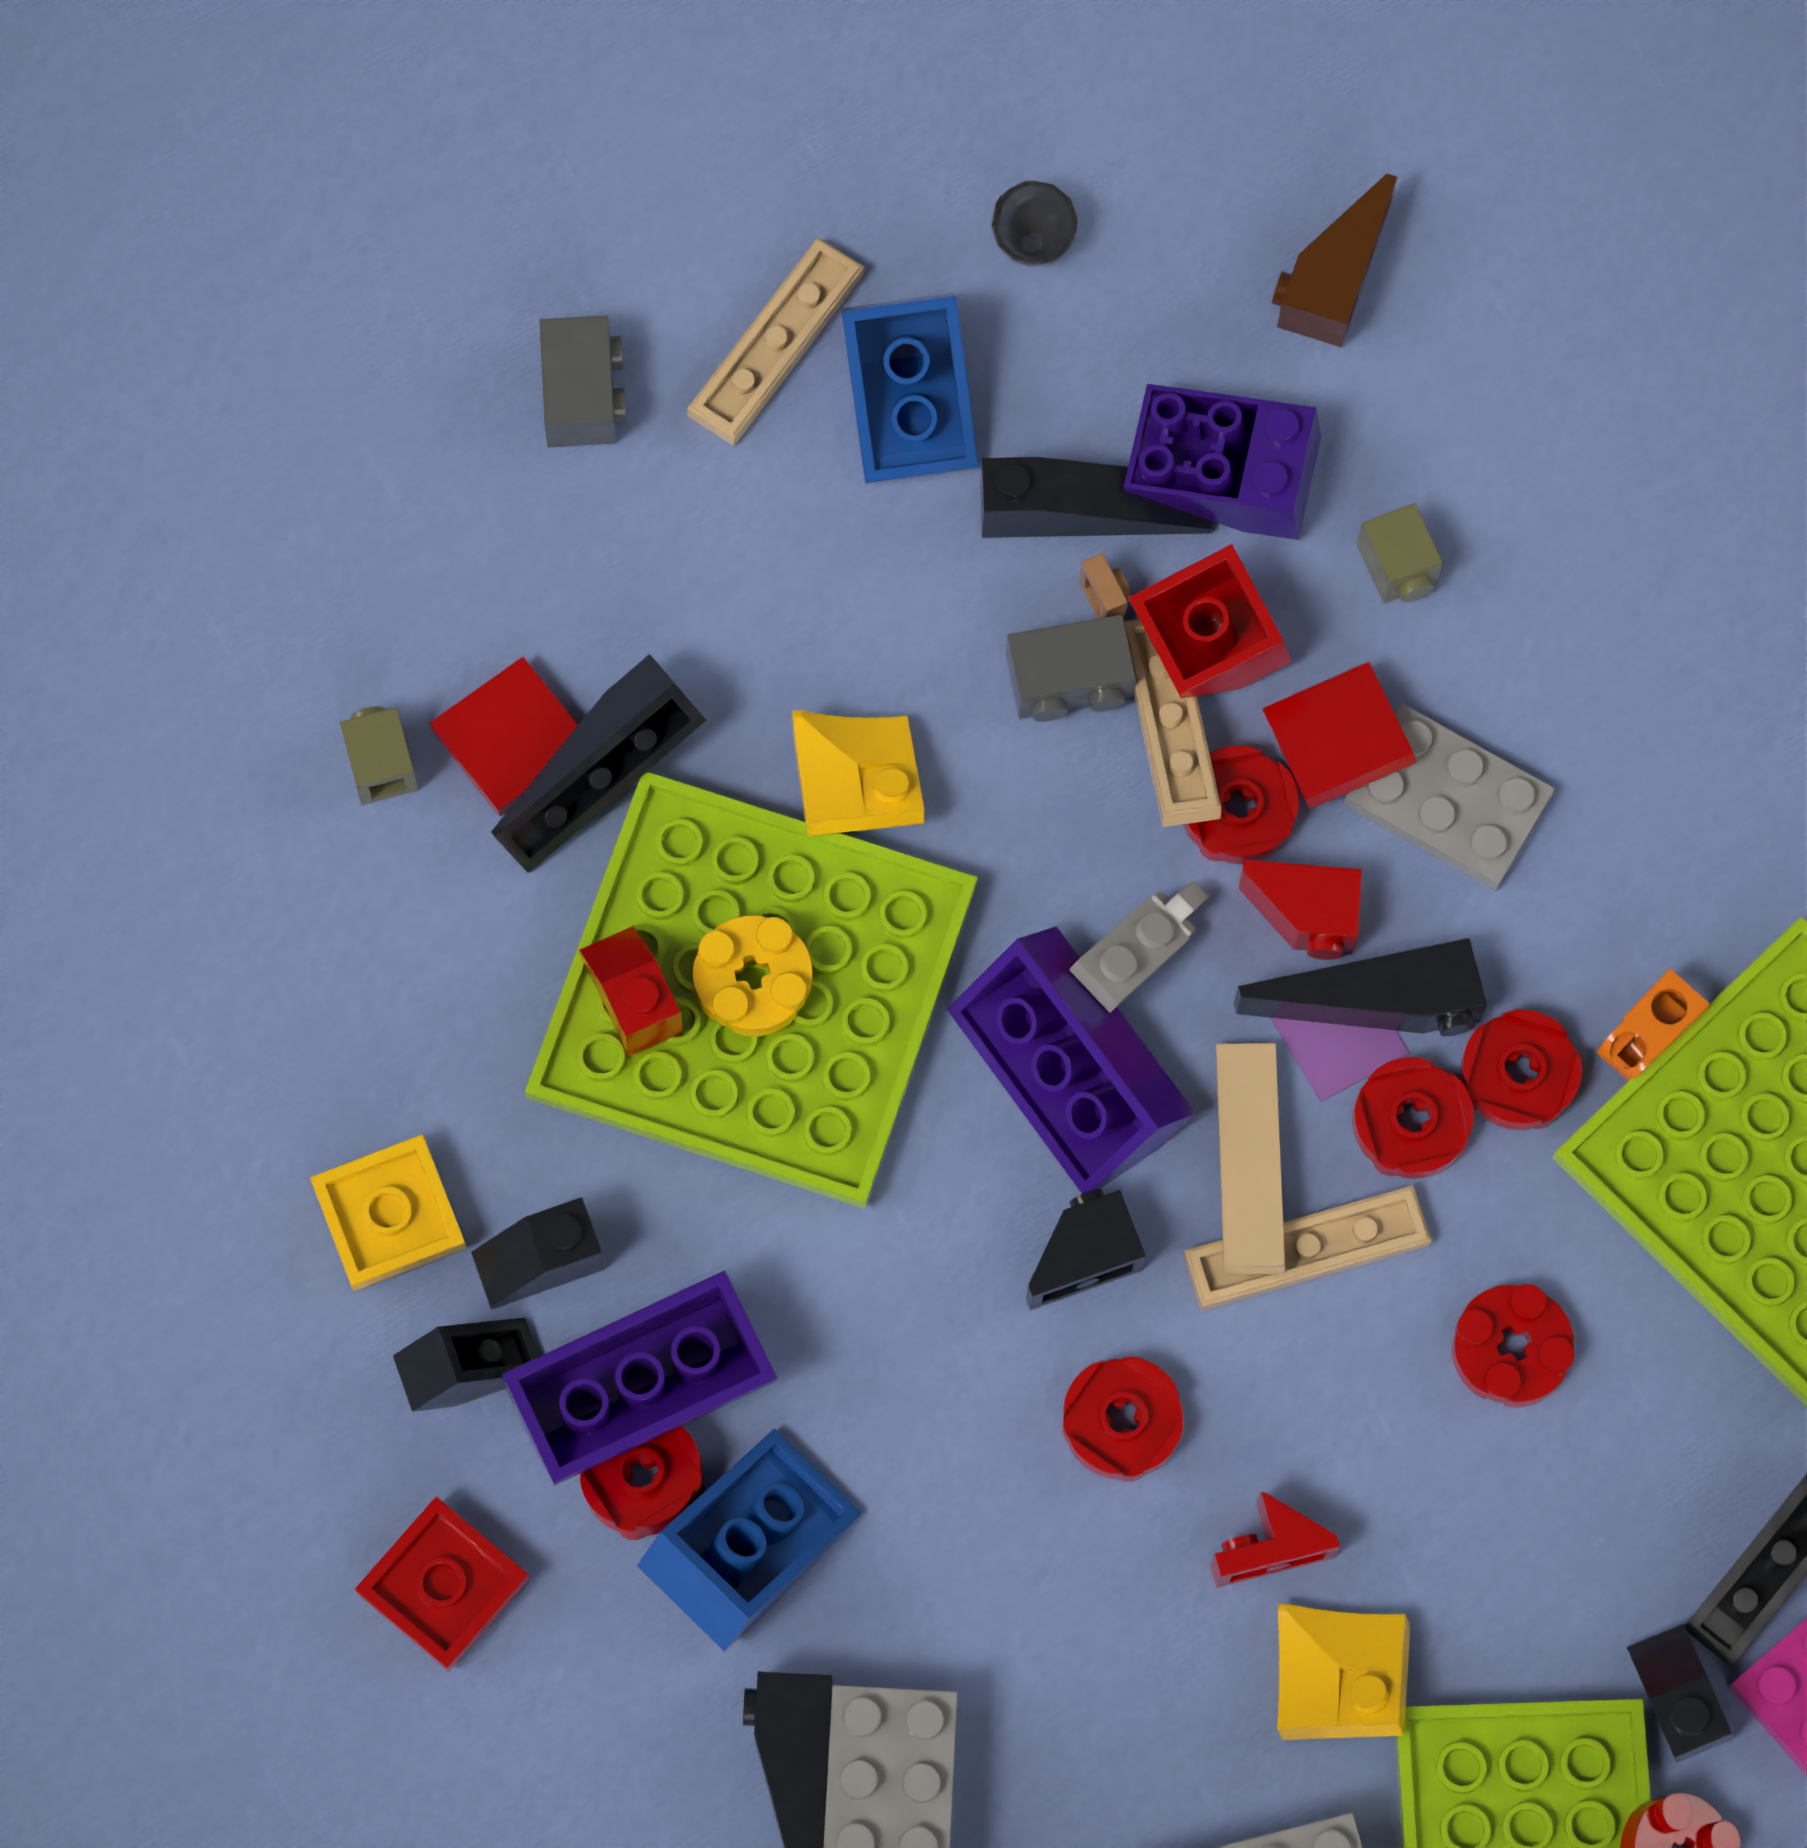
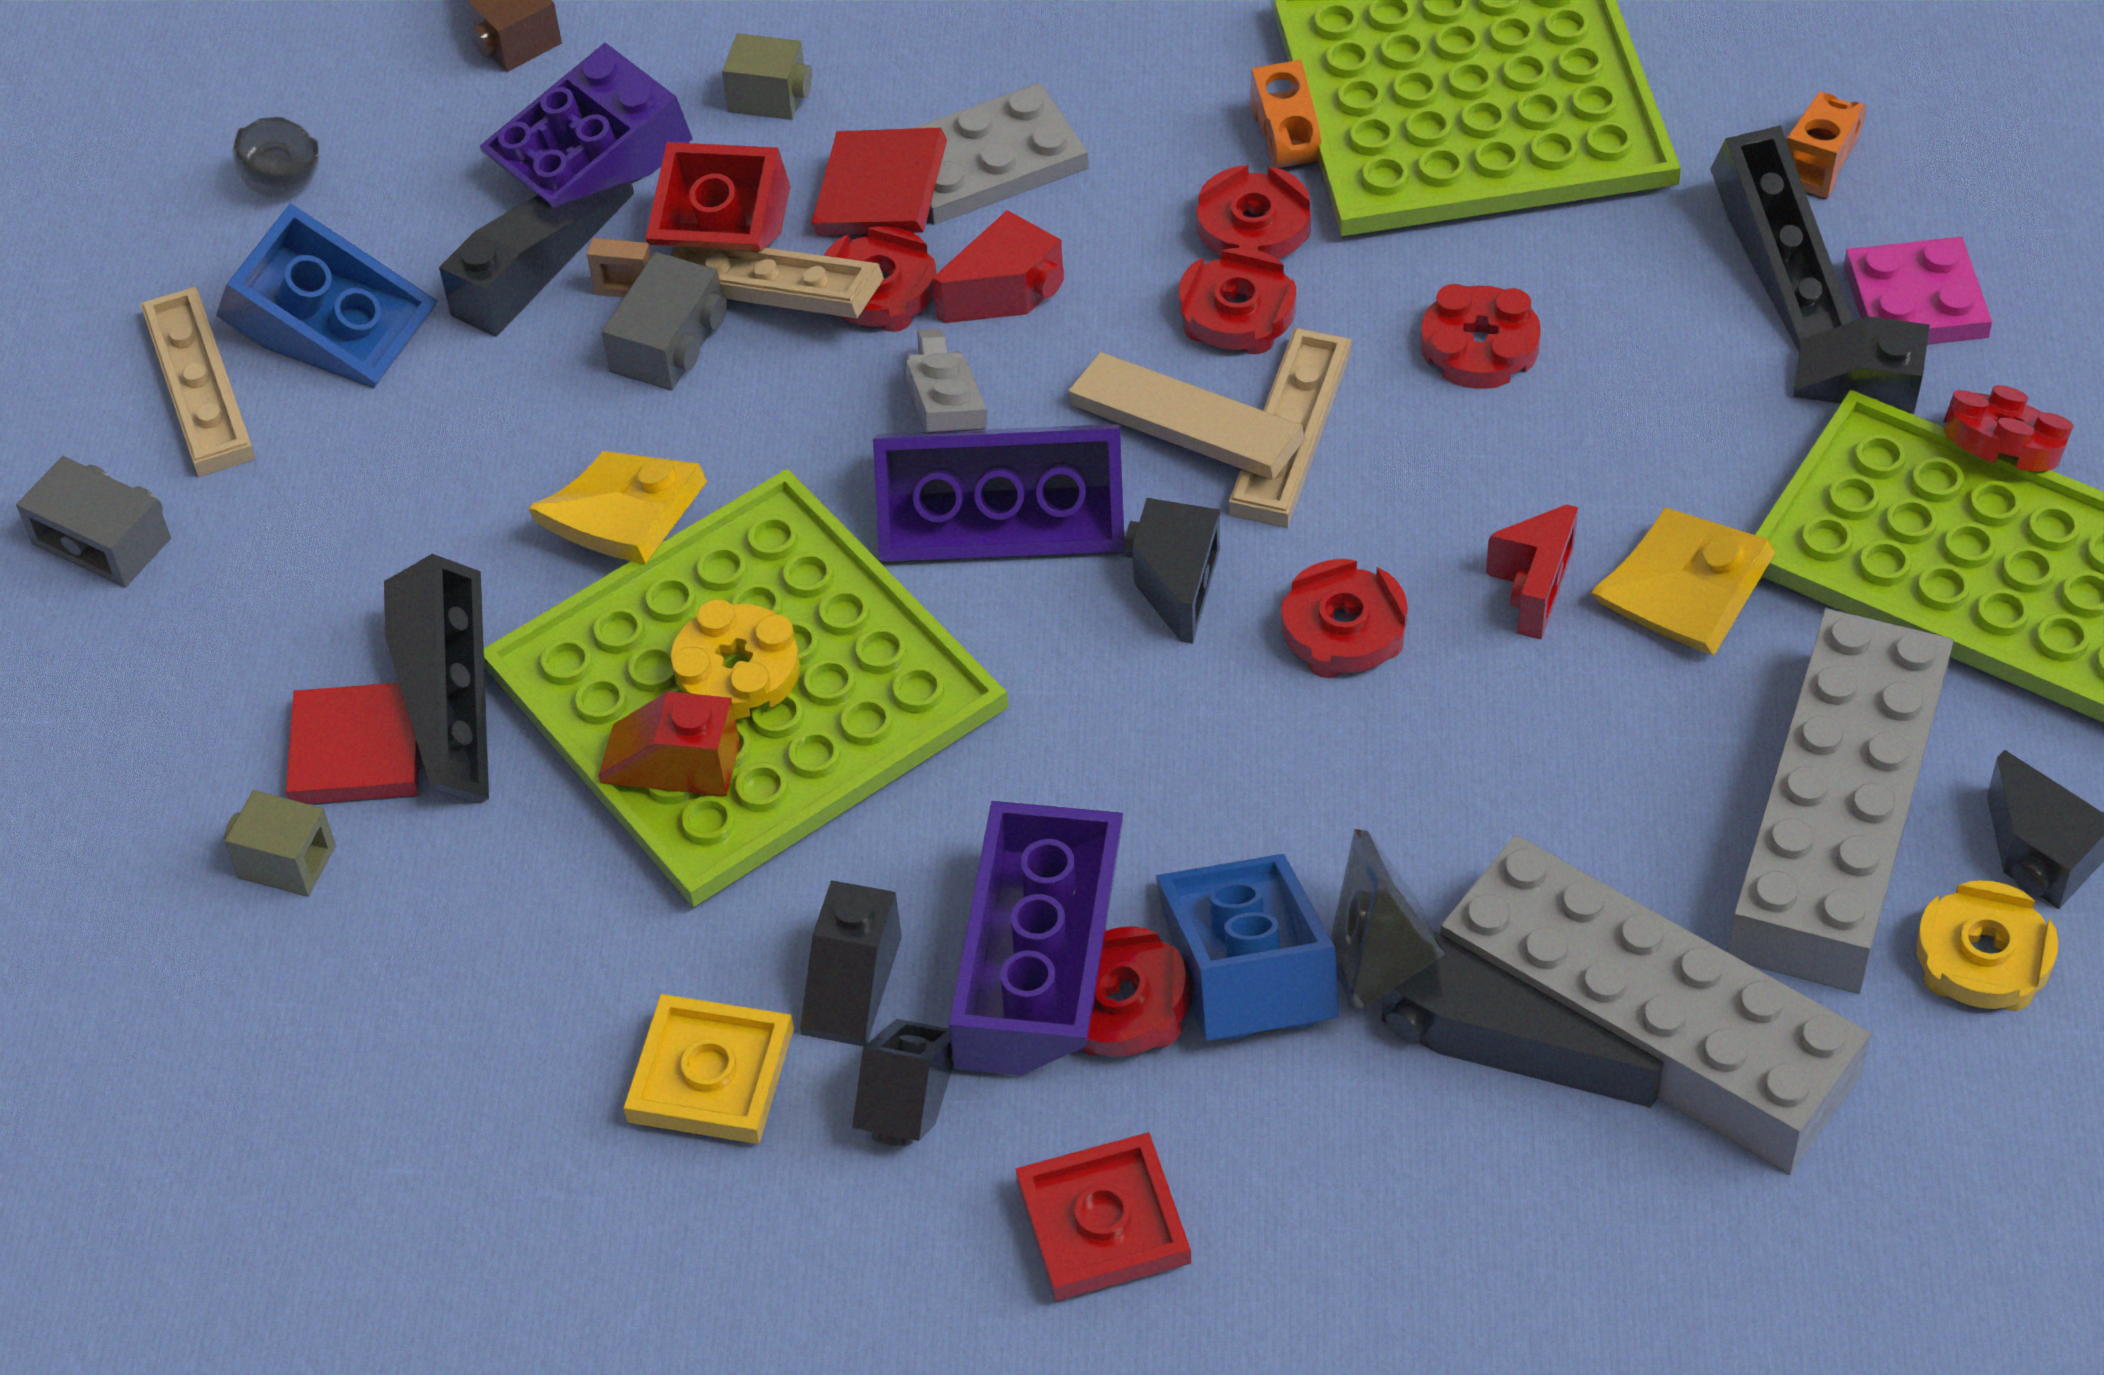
camera: 50 degrees left, 20 degrees down
(807, 1641) = (1378, 926): none -> clear smoke slope
(1338, 1054) = (1124, 321): medium lavender sticker -> none
(1397, 991) = (1119, 261): black slope -> none

